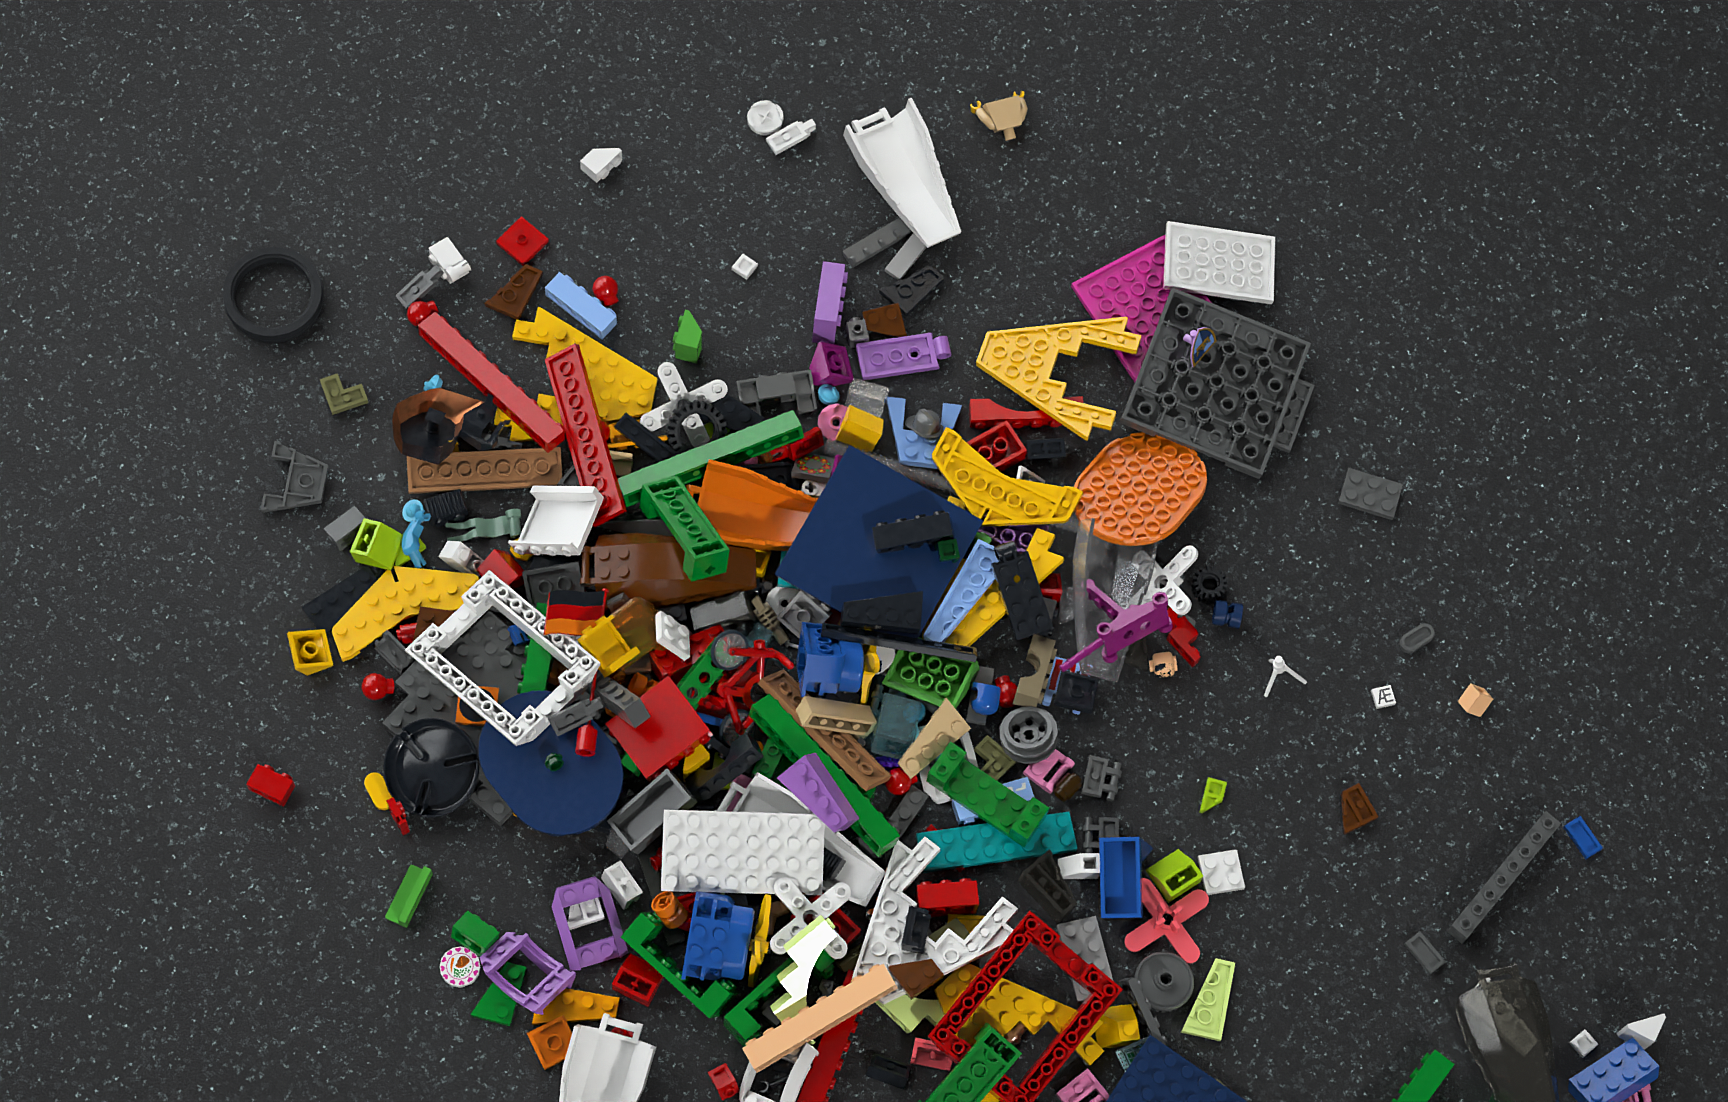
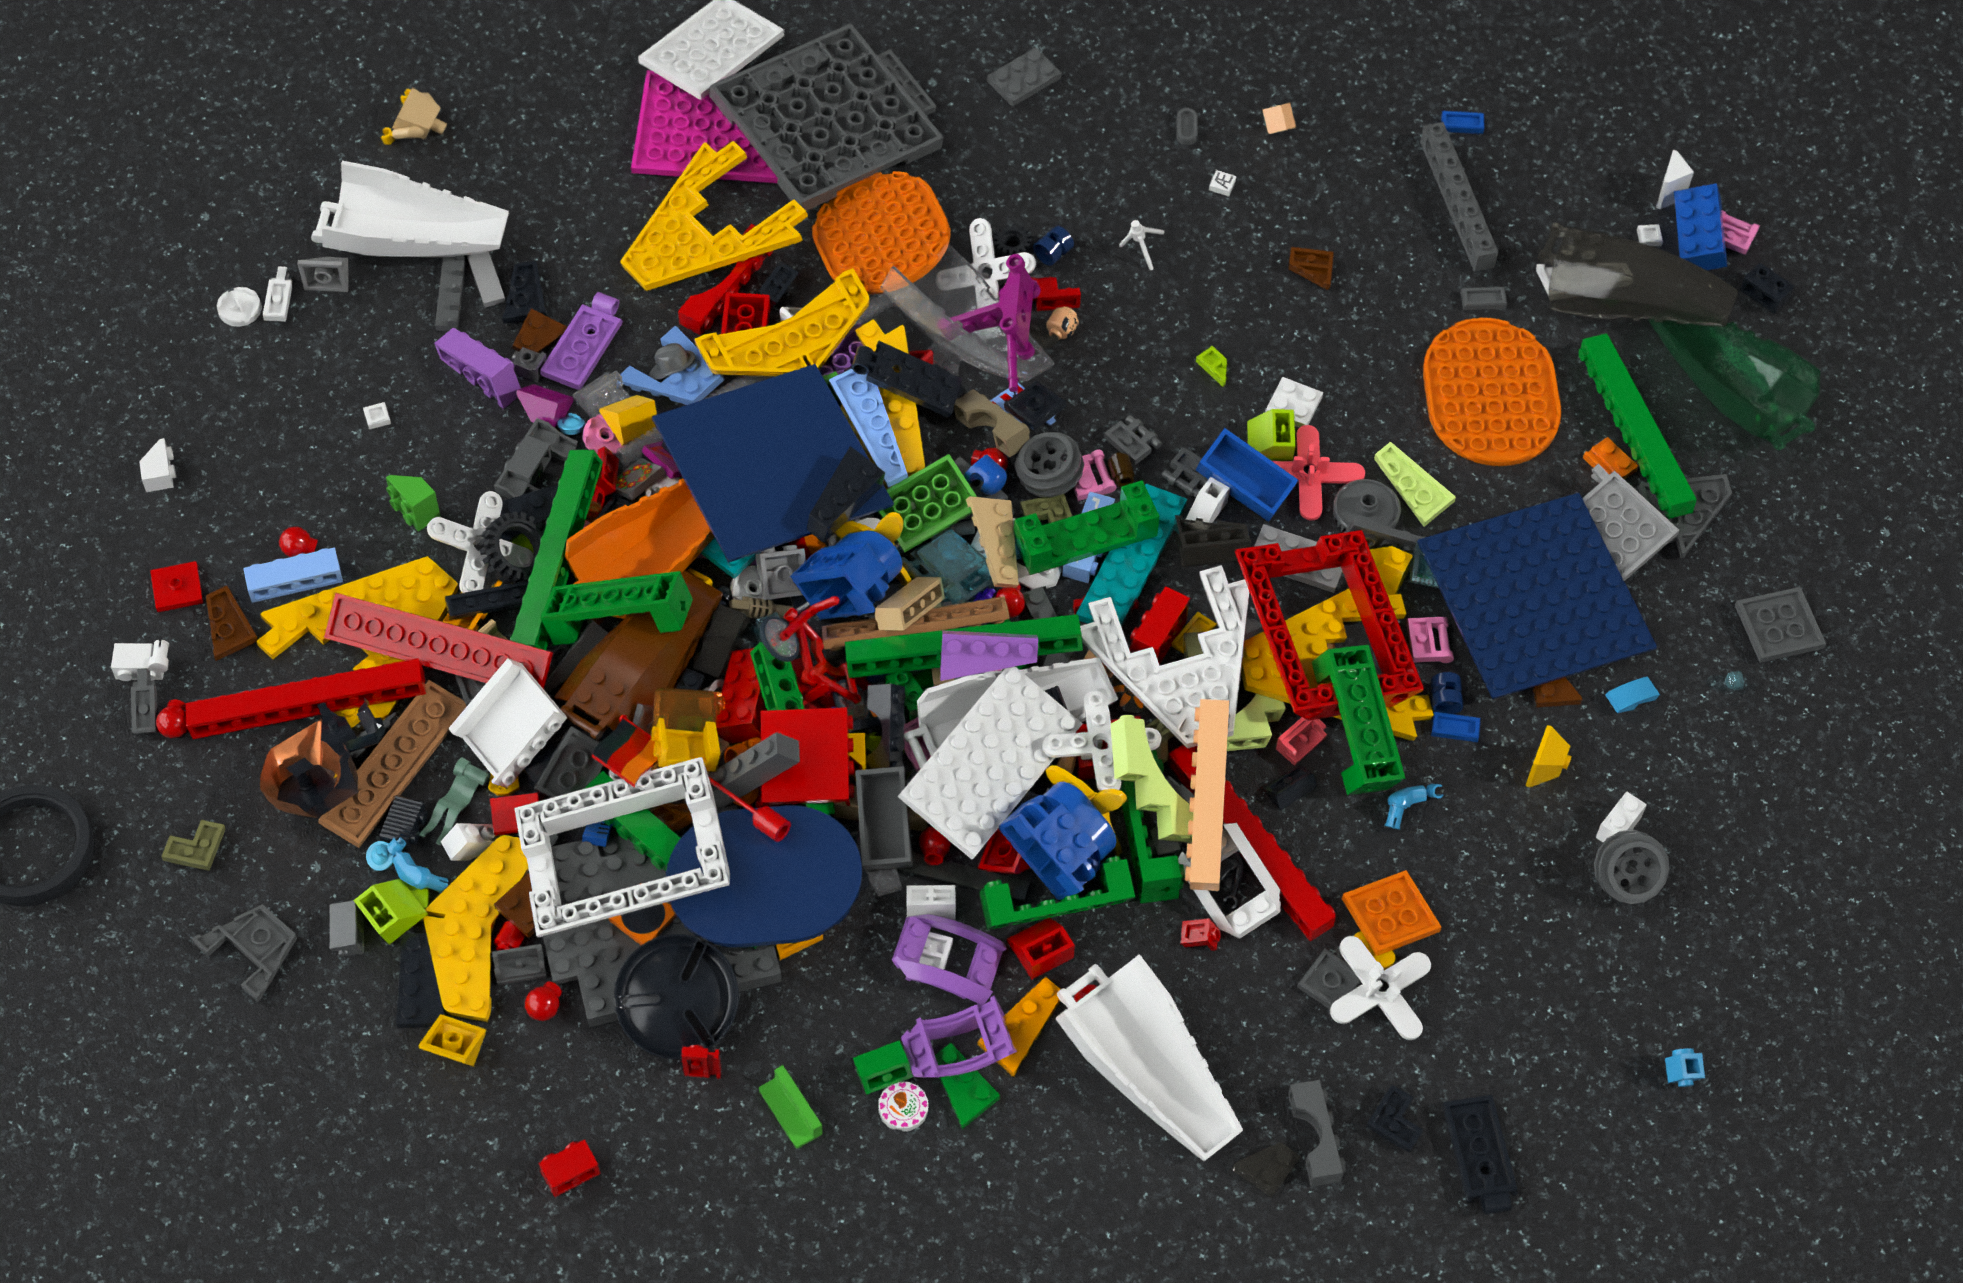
camera: 50 degrees left, 10 degrees down
(377, 790) = (656, 1071): yellow tile -> none
(435, 382) = (258, 754): medium azure hat -> none
(551, 1041) = (1048, 1064): orange tile -> none
(554, 762) = (768, 867): dark green plate -> none
(575, 715) = (737, 815): dark grey hinge -> none
(669, 909) = (995, 866): orange wheel -> none
(672, 635) = (719, 685): white plate -> none
(828, 151) = (324, 274): none -> light grey slope
(899, 642) = (880, 503): black tile -> none
(913, 532) = (785, 419): black wedge -> none
(916, 930) = (1180, 660): black hinge -> none
(916, 976) = (1229, 684): reddish brown wing -> none
(948, 550) = (825, 402): dark green panel -> none
(1201, 342) = (780, 98): shield -> none
(1342, 1010) = (1491, 392): none -> orange tile

